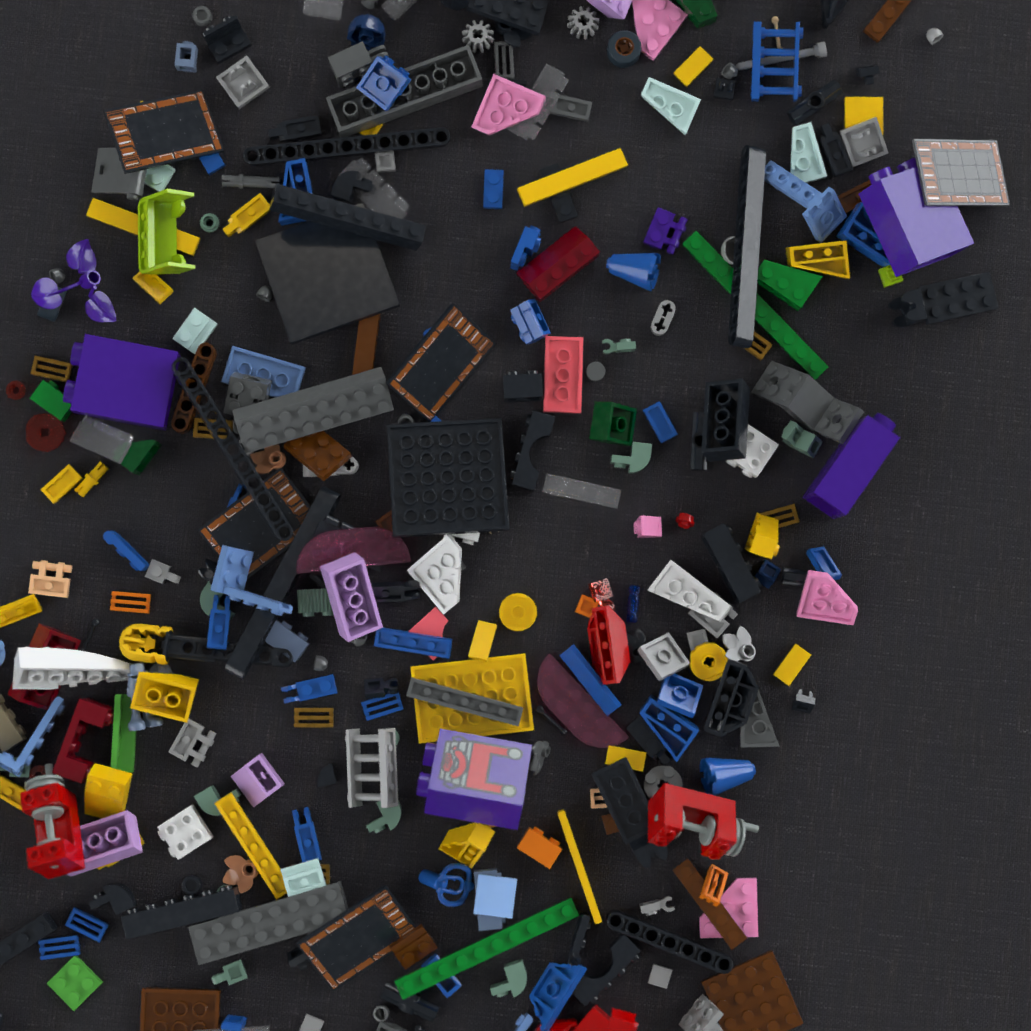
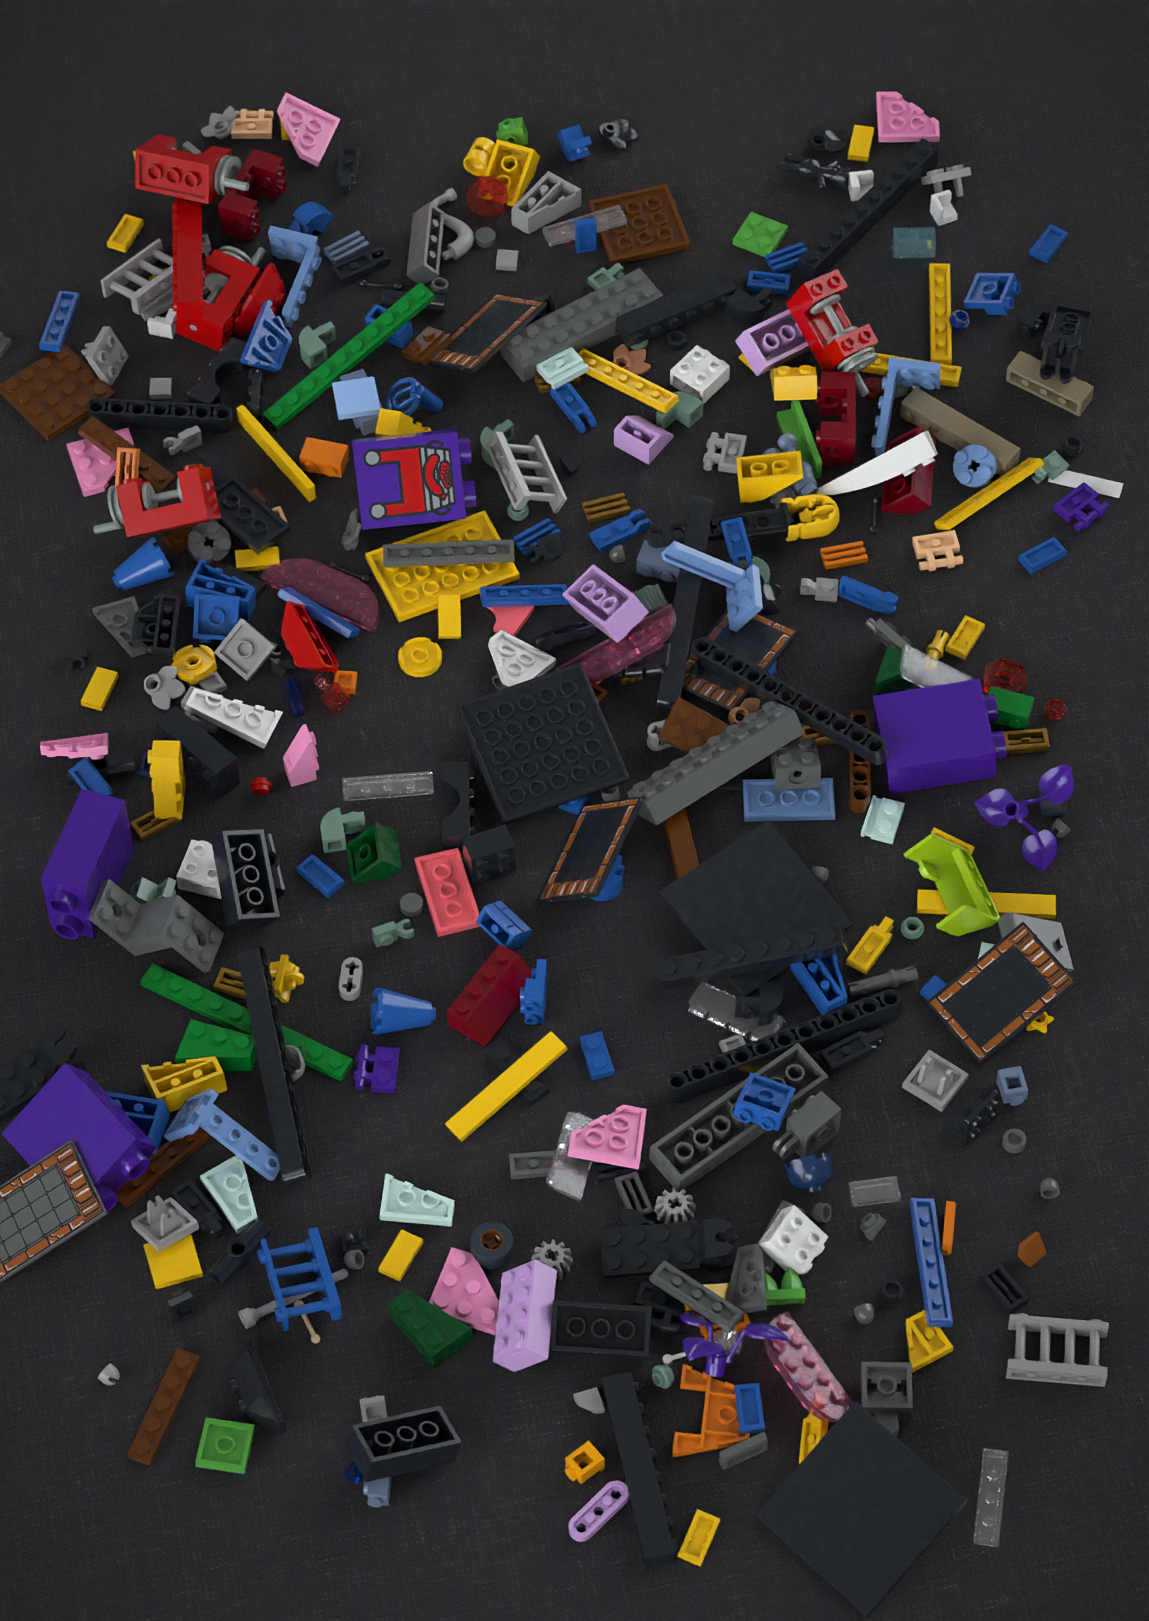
camera: 170 degrees right, 30 degrees down
(125, 495) = (888, 634): none -> dark grey plate
(713, 331) = (286, 976): none -> yellow hips

